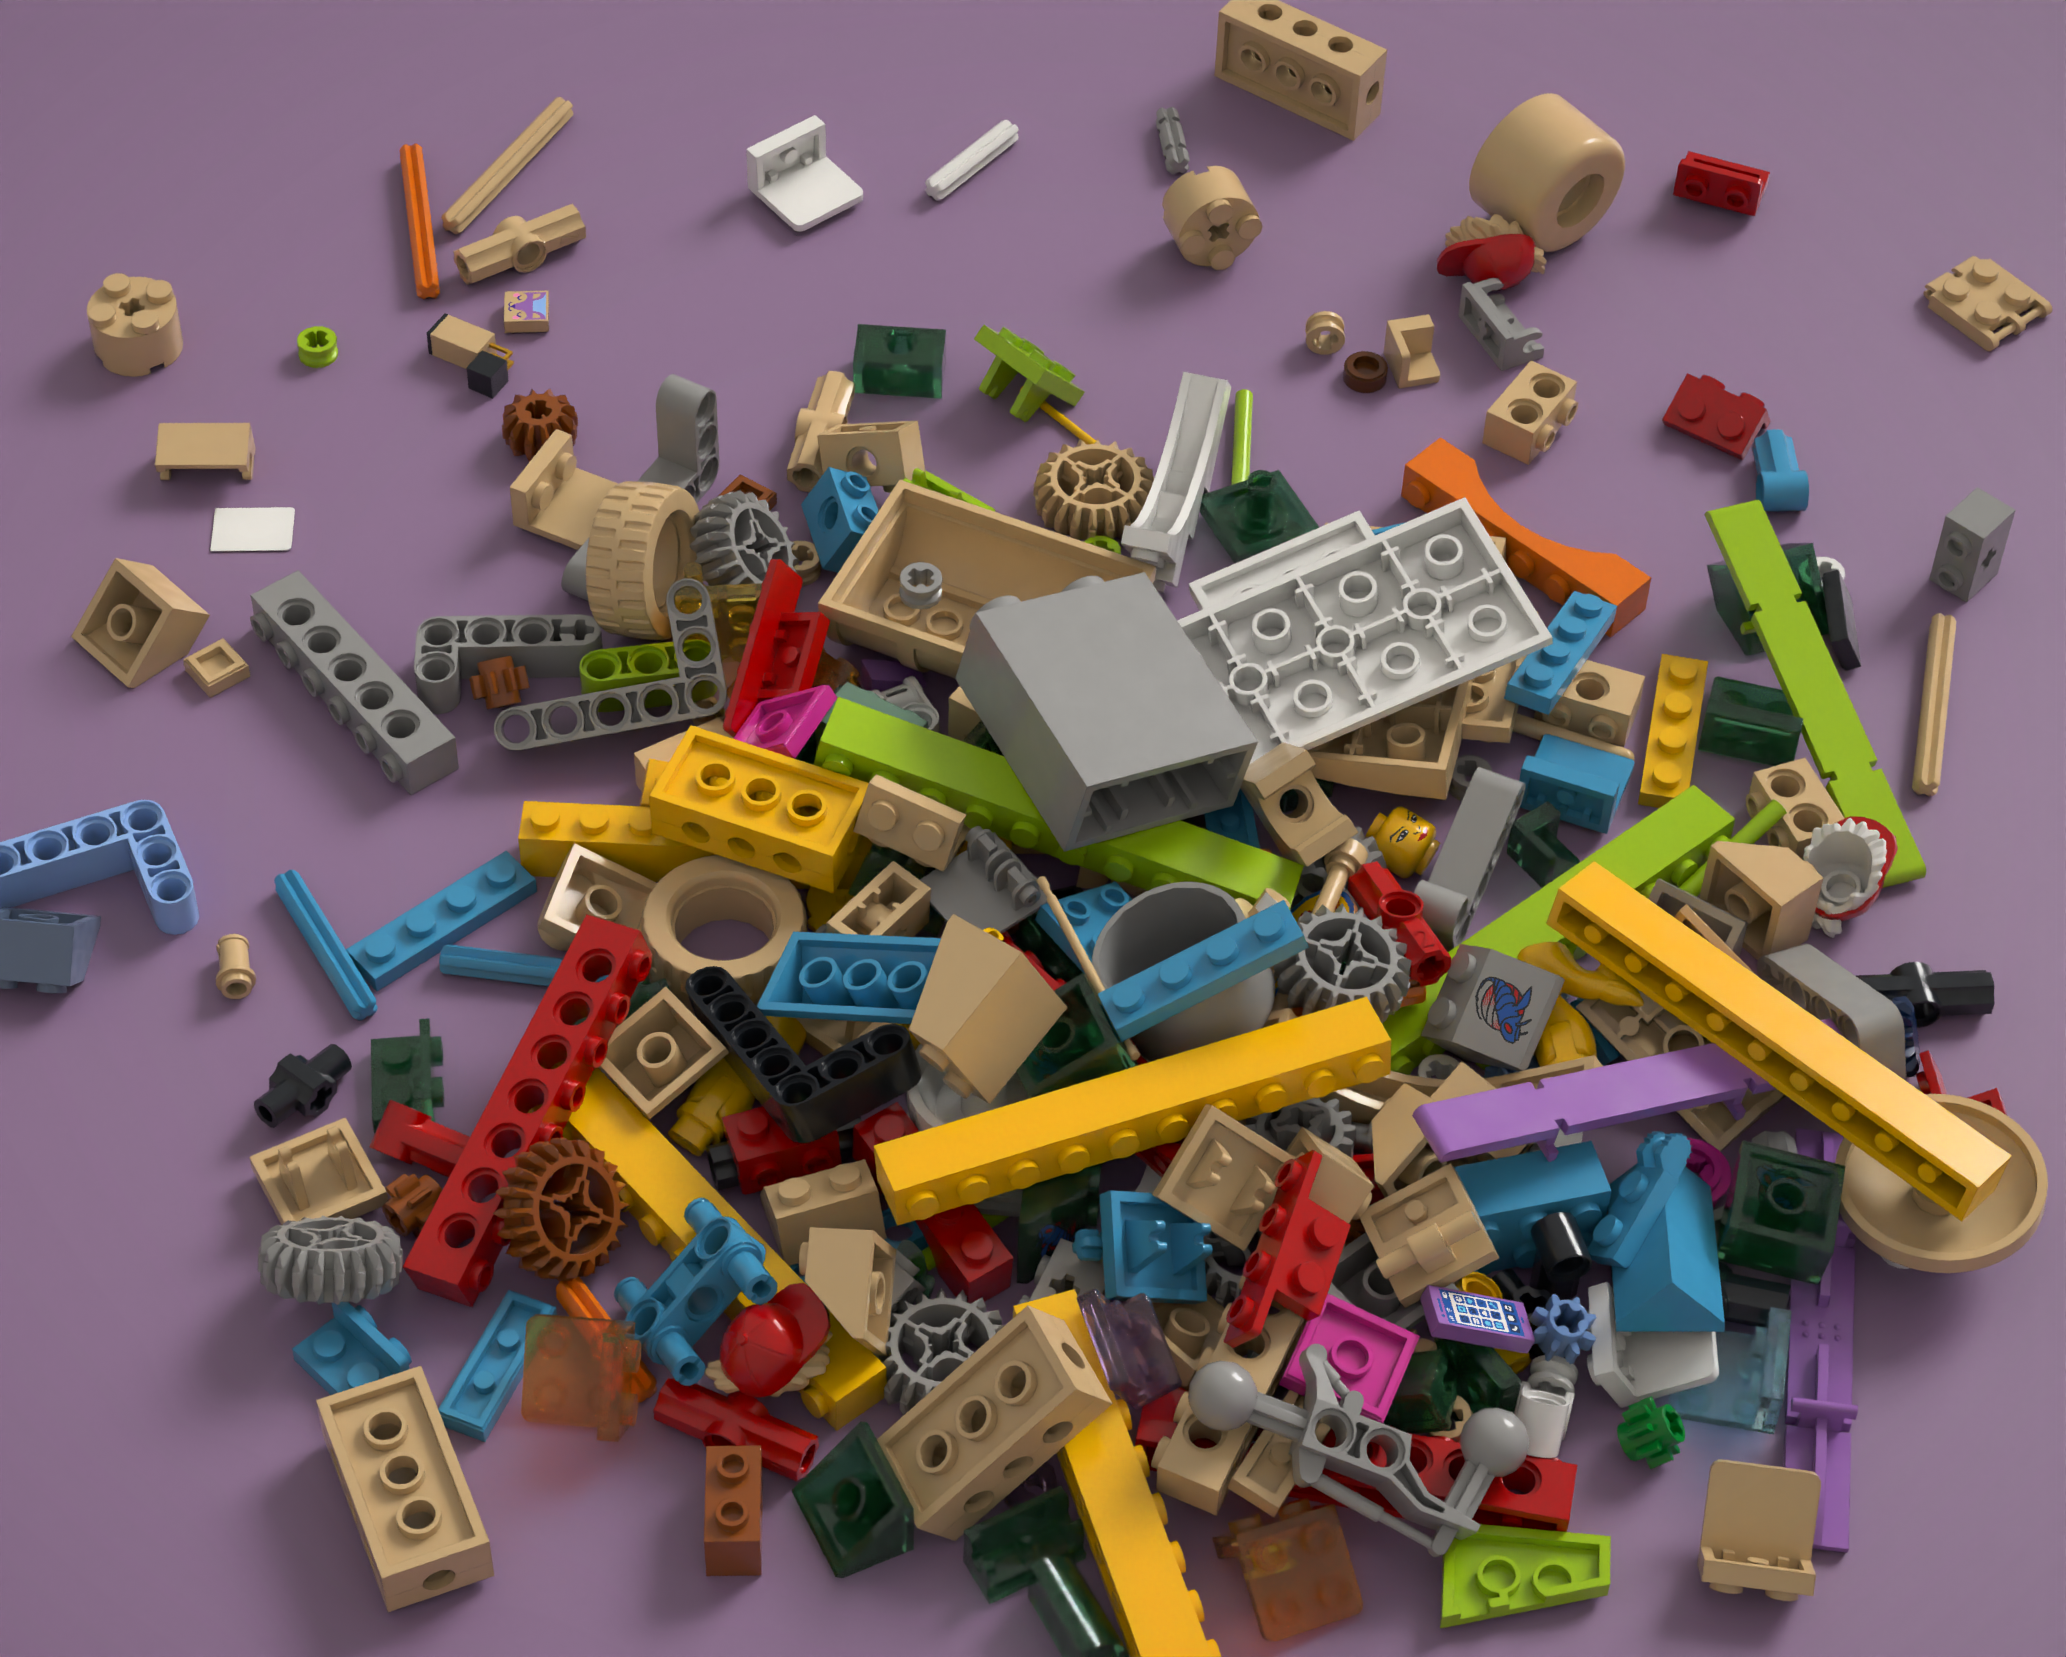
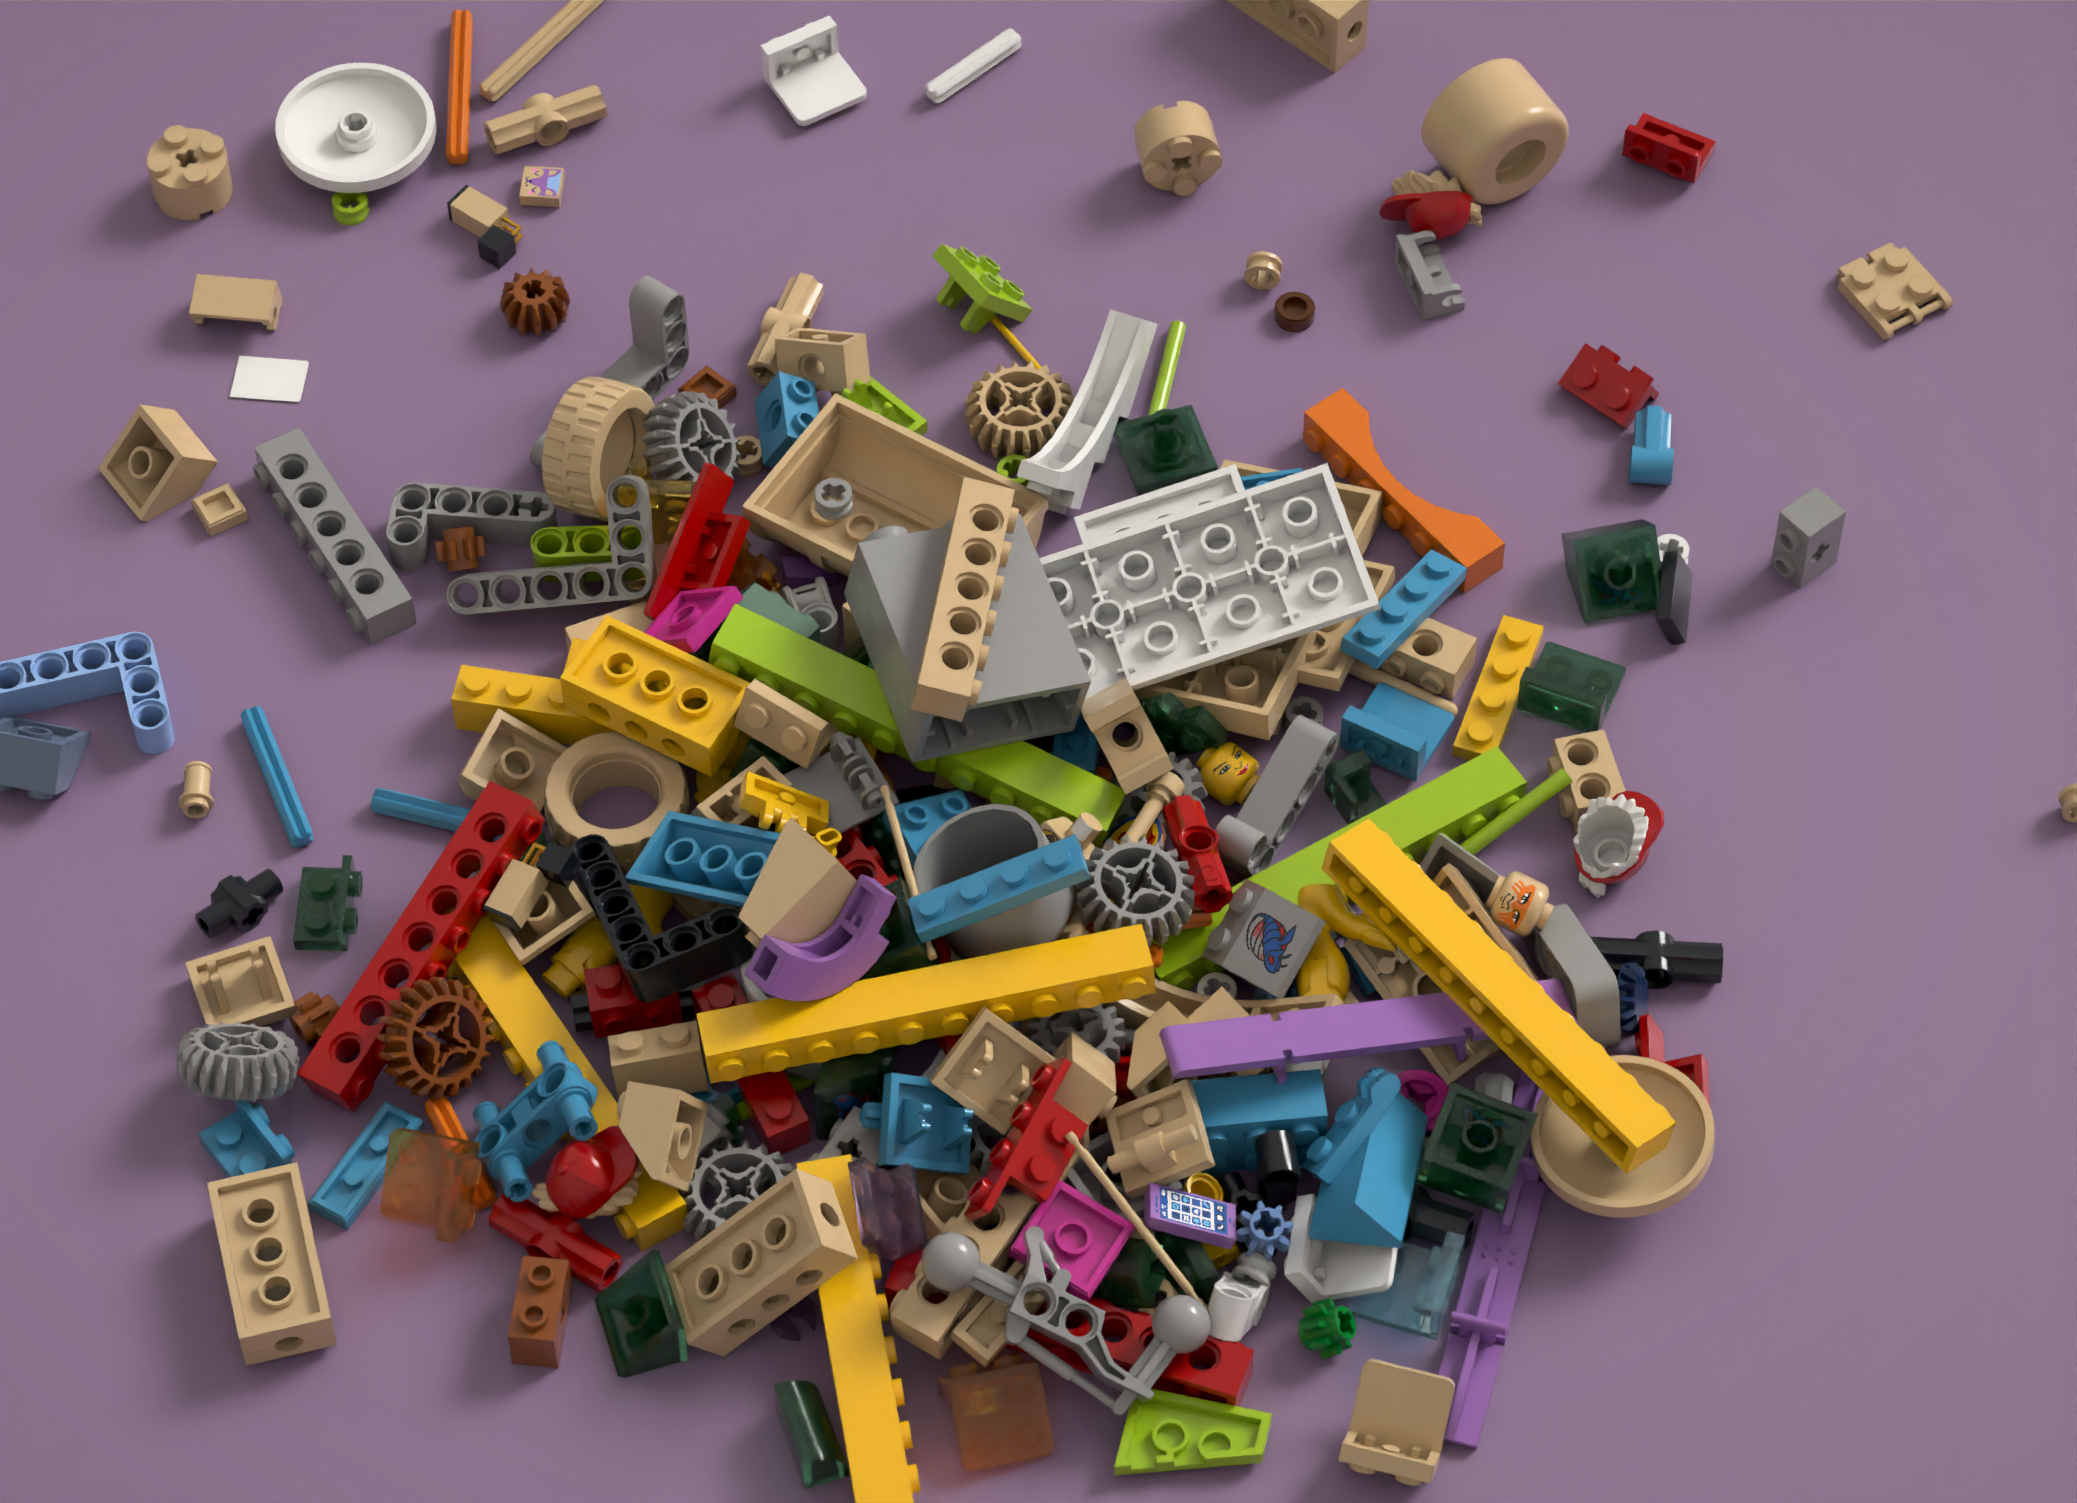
camera: 10 degrees right, 5 degrees up
(313, 265) = (355, 127): none -> white dish
(415, 1138) = (323, 959): red piece -> none
(442, 920) = (379, 764): dark azure plate -> none
(556, 496) = (539, 370): tan bracket -> none
(641, 1025) = (524, 884): none -> piece
(899, 361) = (868, 266): clear green brick -> none
(921, 908) = (779, 803): none -> yellow hinge
(1005, 1544) = (775, 1359): clear green hinge -> none
(1026, 1064) = (834, 958): none -> medium lavender arch
(1107, 663) = (963, 600): none -> tan brick
(1172, 140) = (1163, 60): light grey axle -> none
(1357, 793) = (1183, 728): none -> clear green hinge
(1409, 351) = (1340, 296): tan panel -> none
(1414, 1322) = (1132, 1216): none -> tan piece
(1530, 412) = (1435, 367): tan brick -> none
(1766, 889) = (1536, 847): tan slope -> none
(1766, 943) = (1519, 903): none -> tan head
(1809, 677) = (1623, 659): lime piece -> none
(1934, 705) = (1742, 686): tan axle -> none

